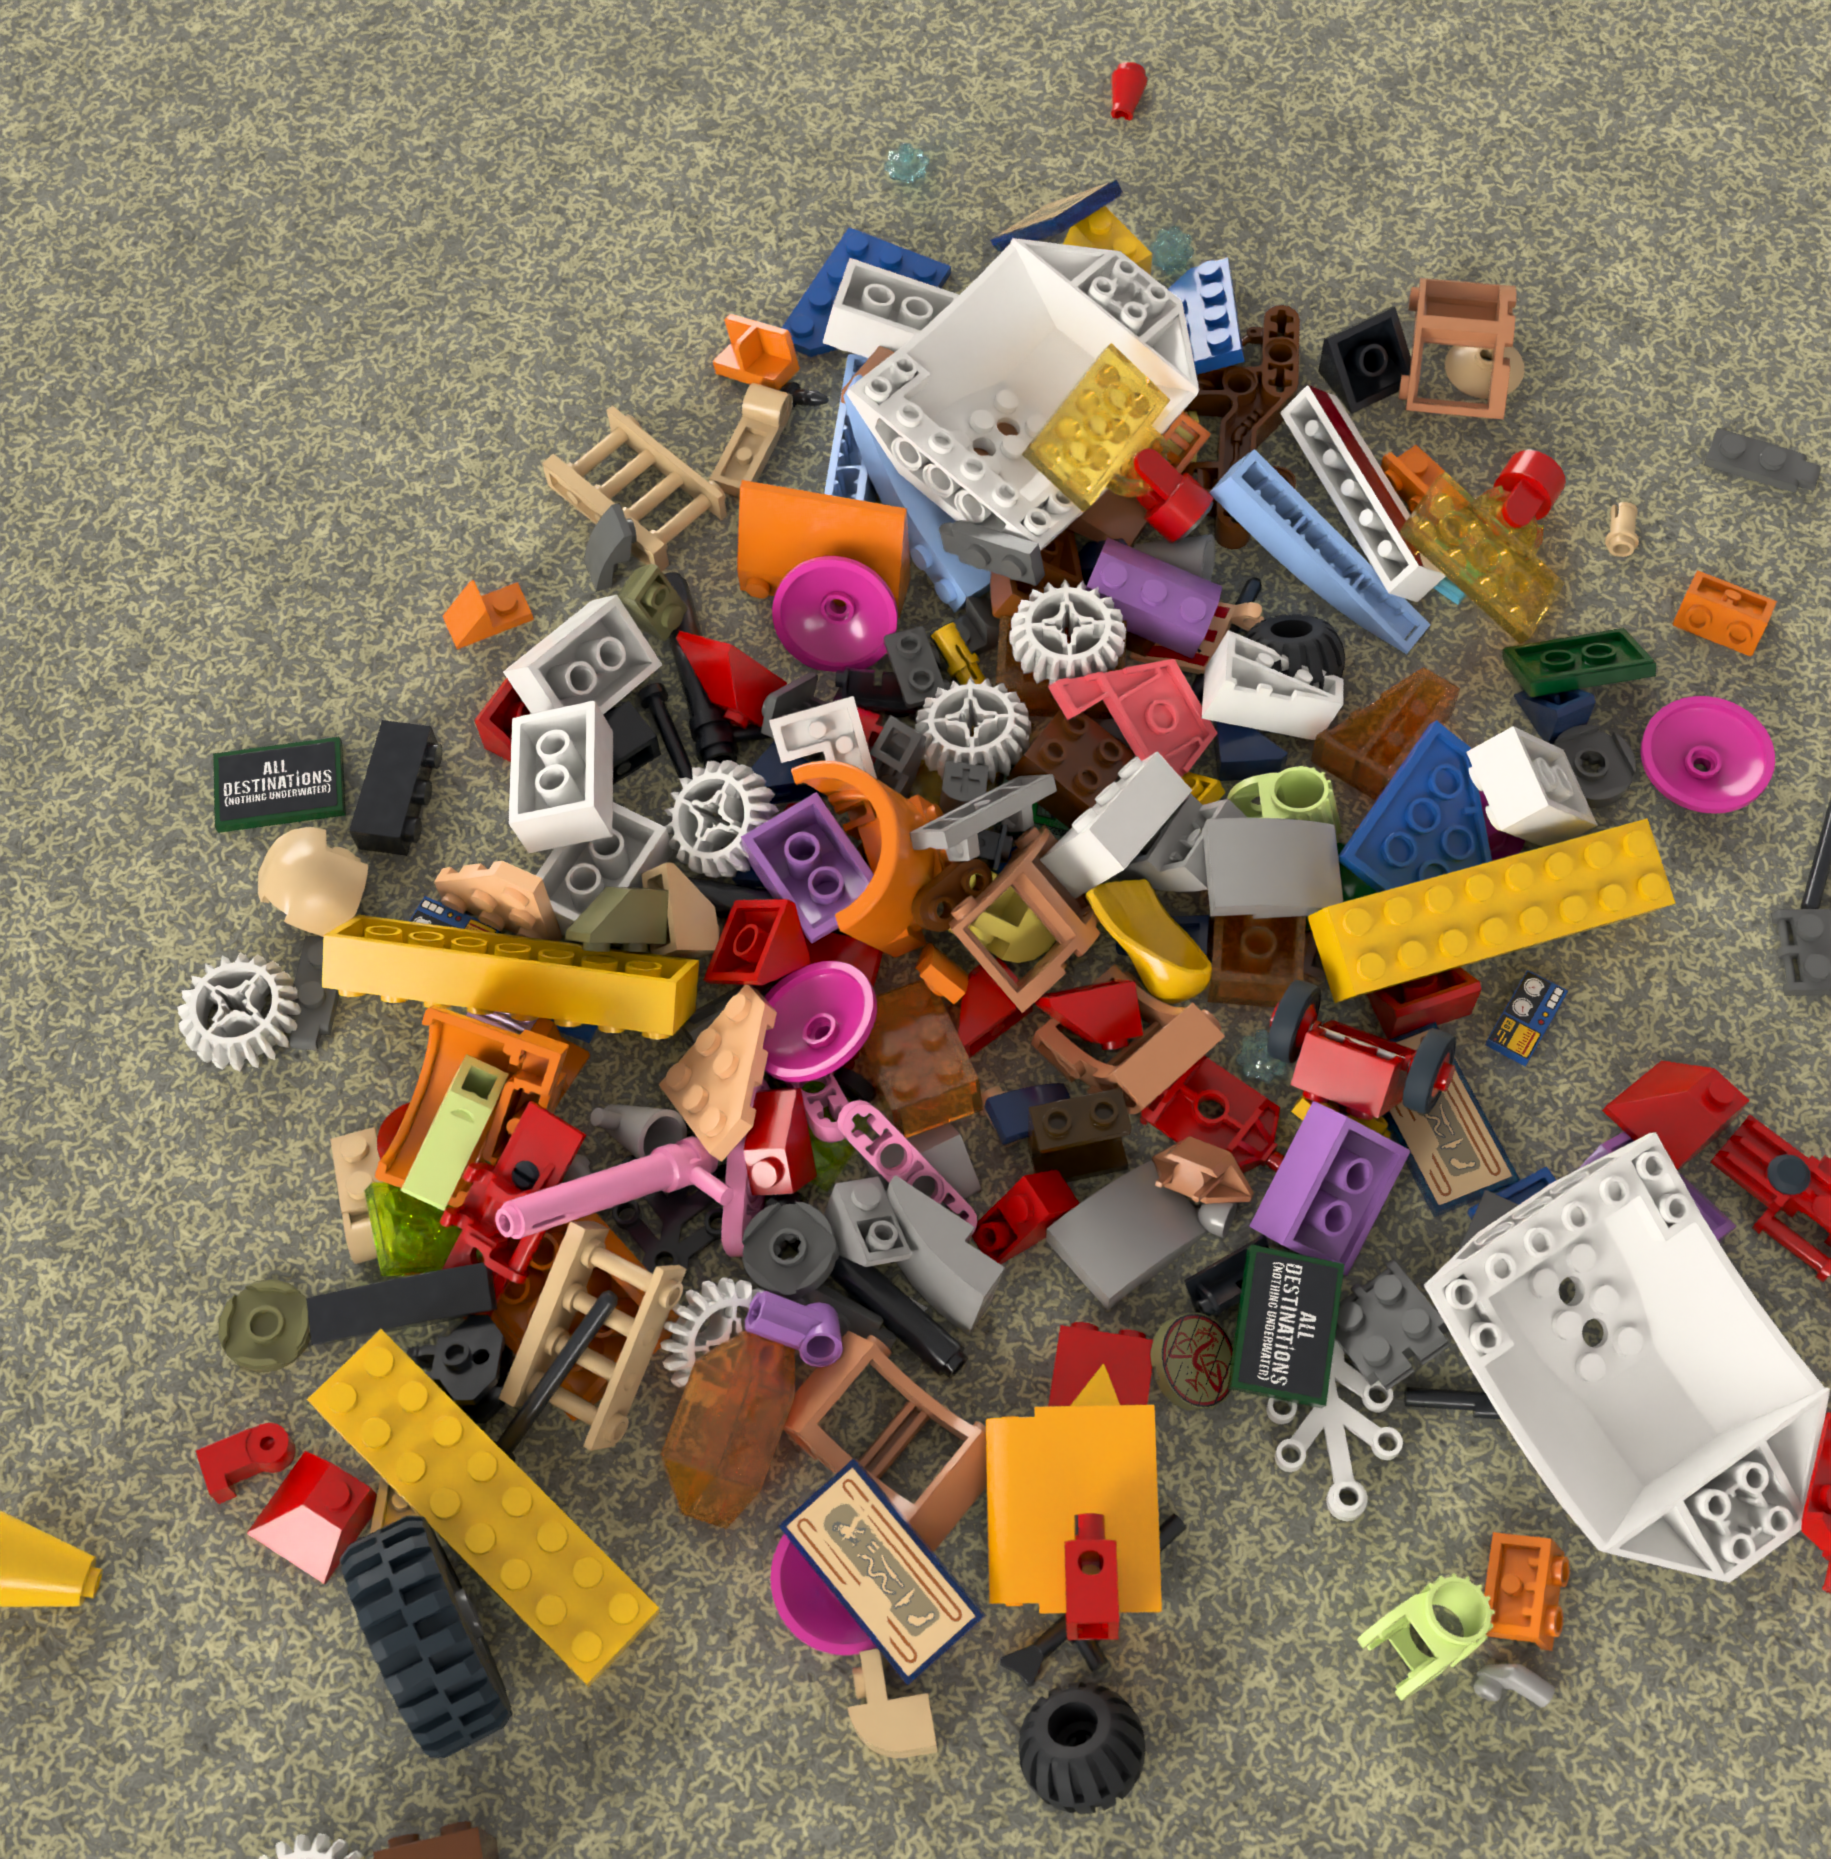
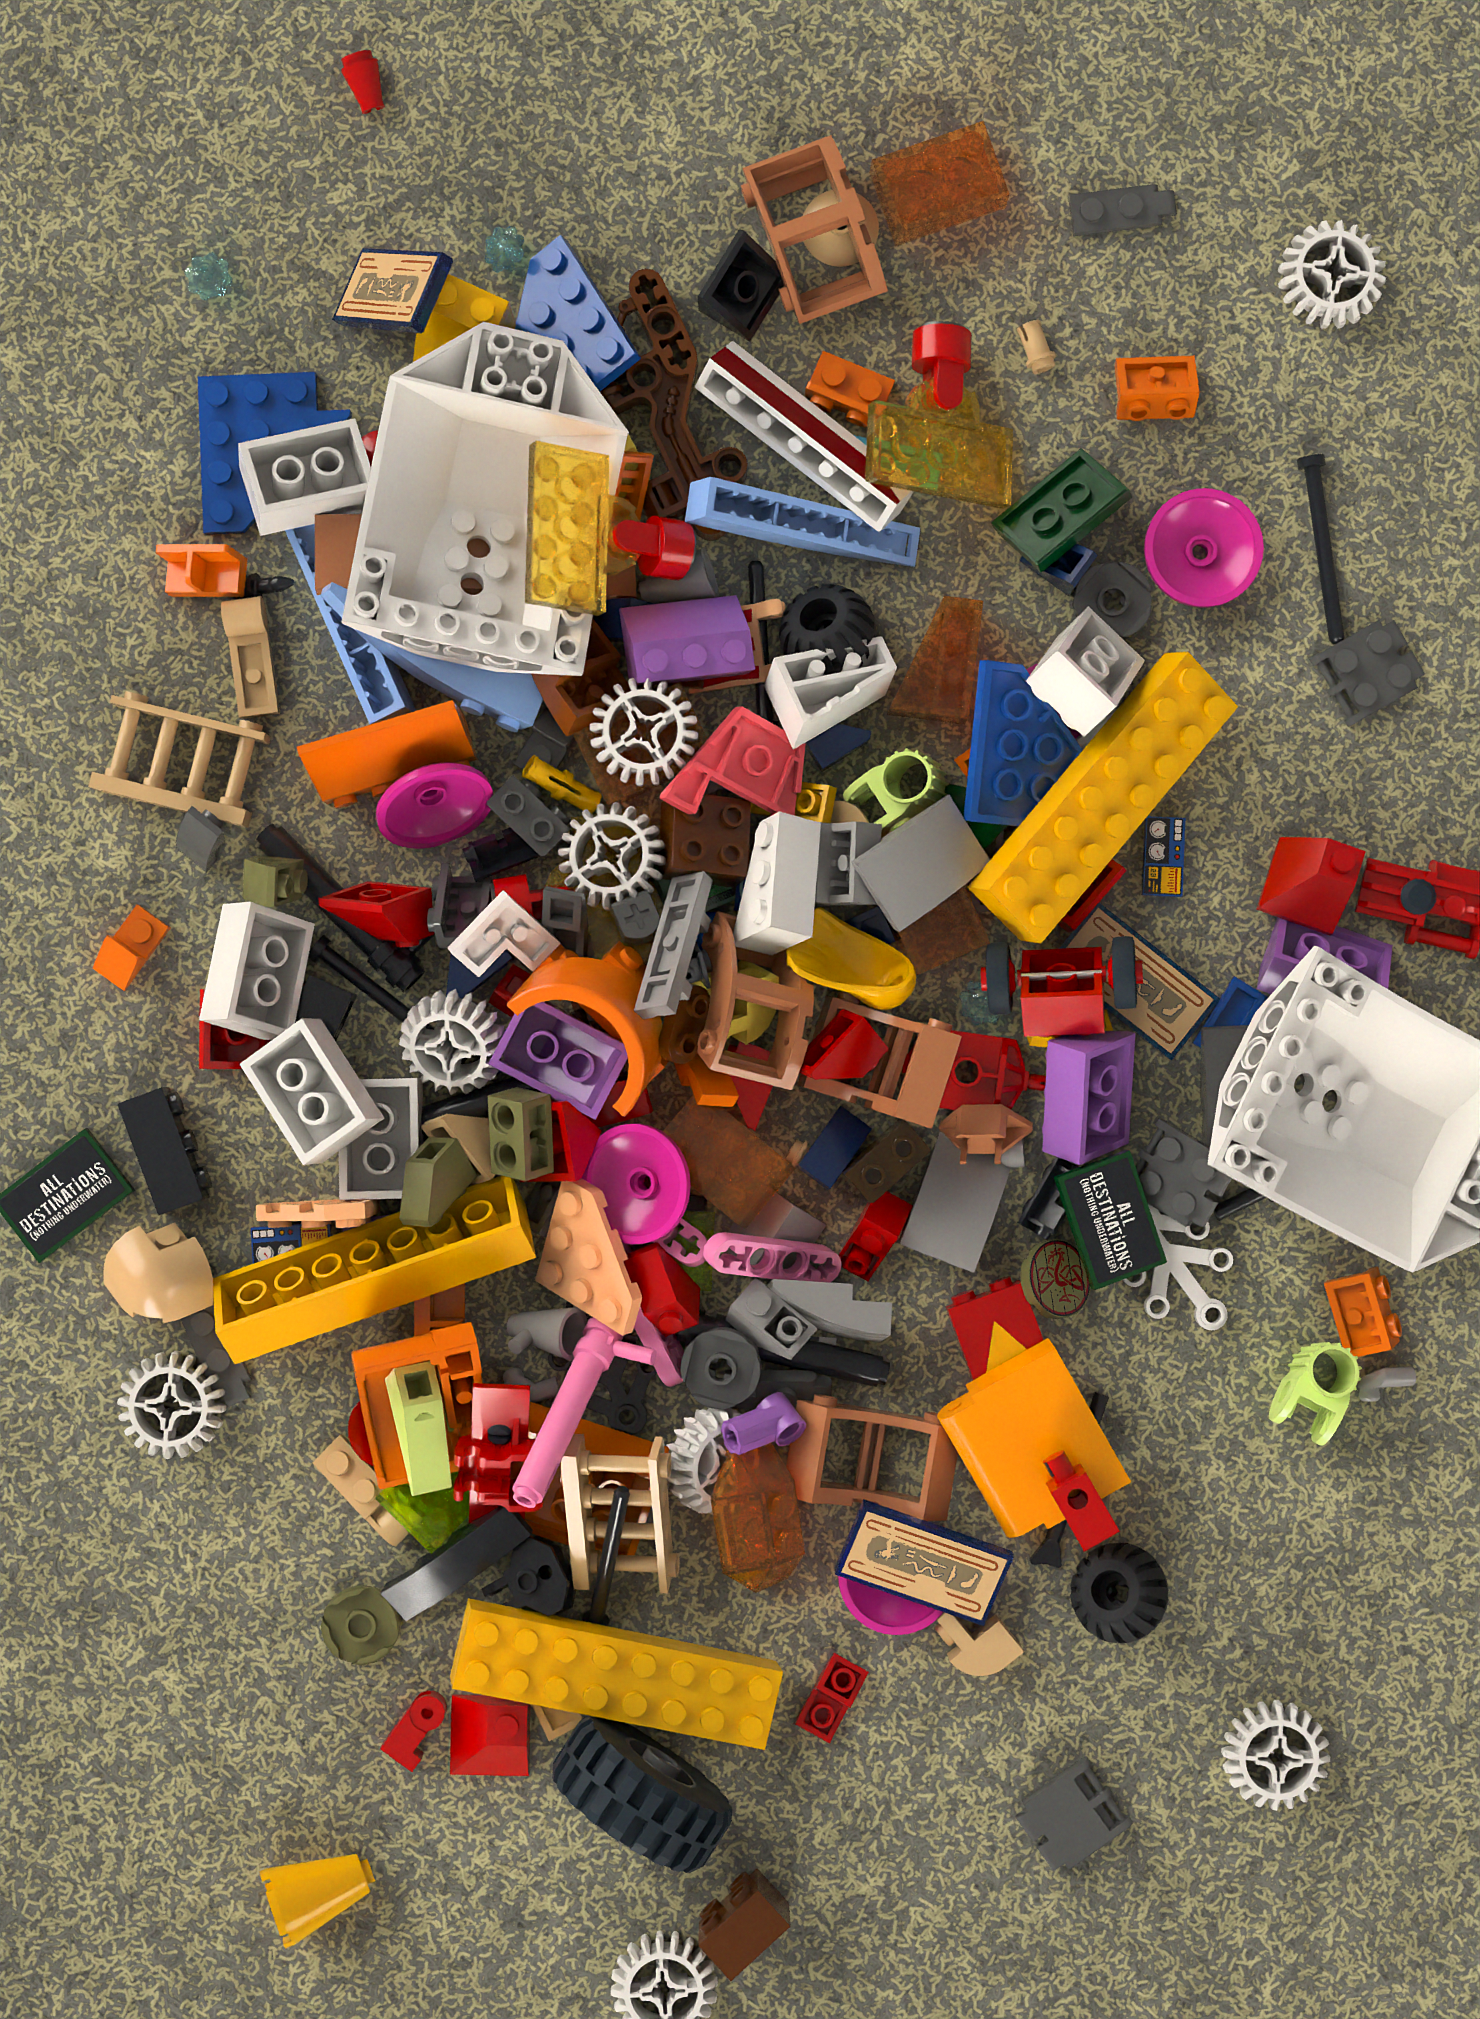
camera: 40 degrees left, 25 degrees up
(693, 1686) = (831, 1697): none -> red slope
(731, 915) = (520, 1133): none -> olive brick
(993, 551) = (532, 689): dark grey hinge -> none
(1597, 364) = (939, 183): none -> clear orange brick

